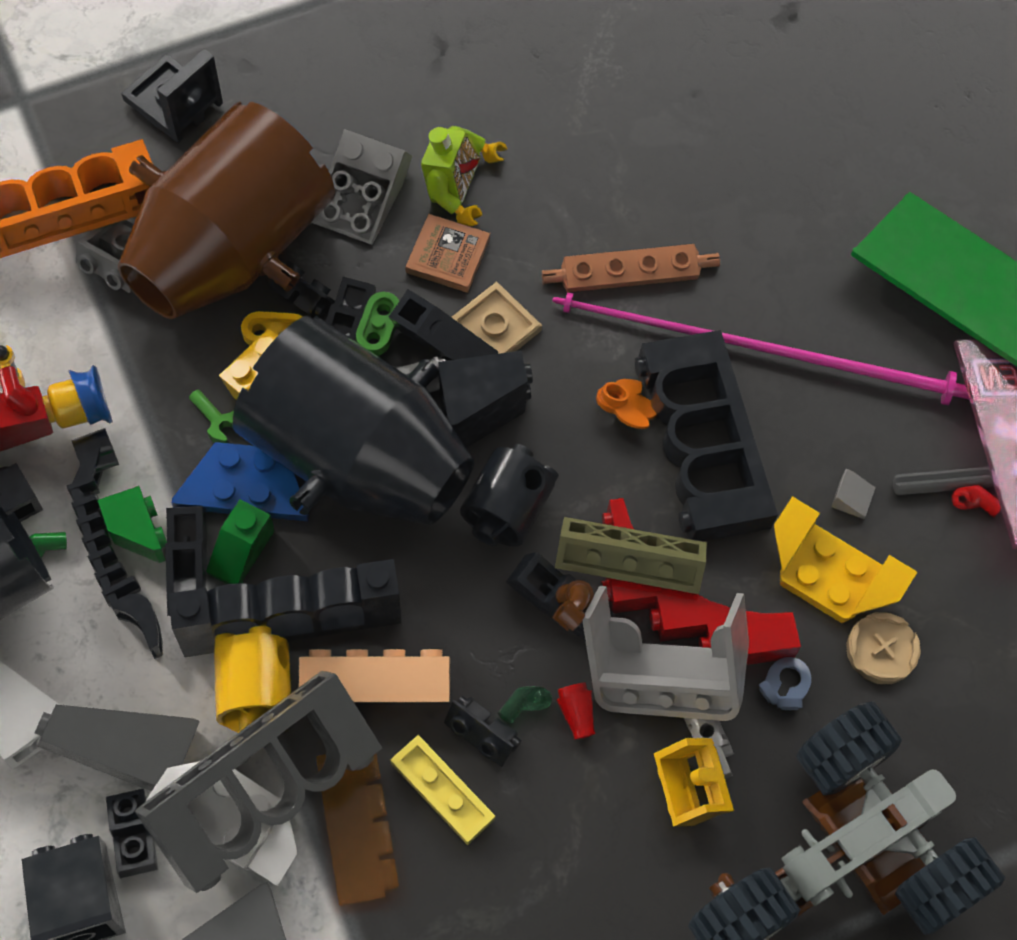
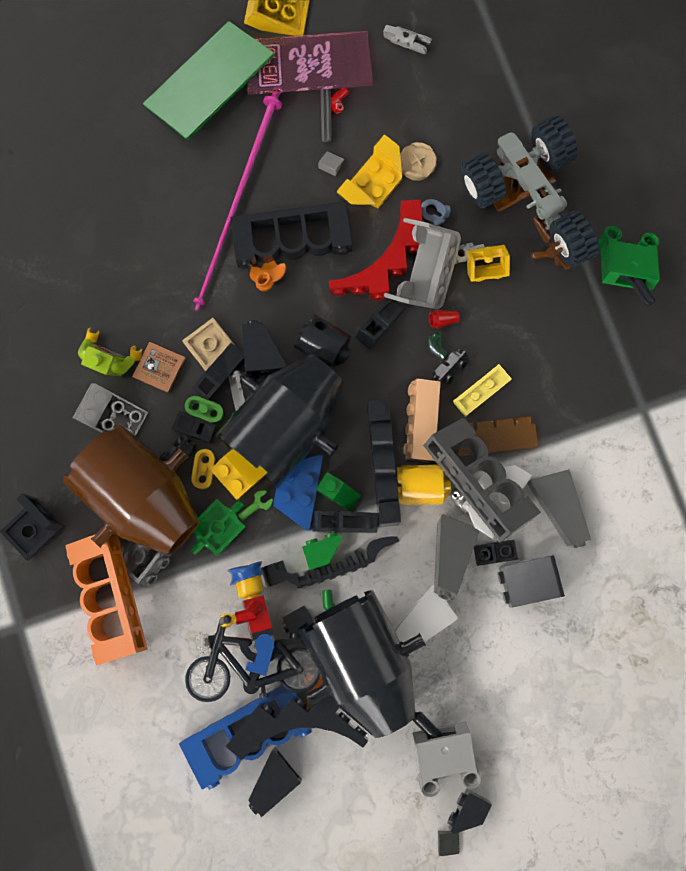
camera: 80 degrees left, 15 degrees up
(176, 359) = (218, 527): none -> green plate
(576, 598) = (392, 306): reddish brown piece -> none
(630, 268) = (179, 264): nougat plate -> none
(631, 555) = (369, 278): olive fence -> none

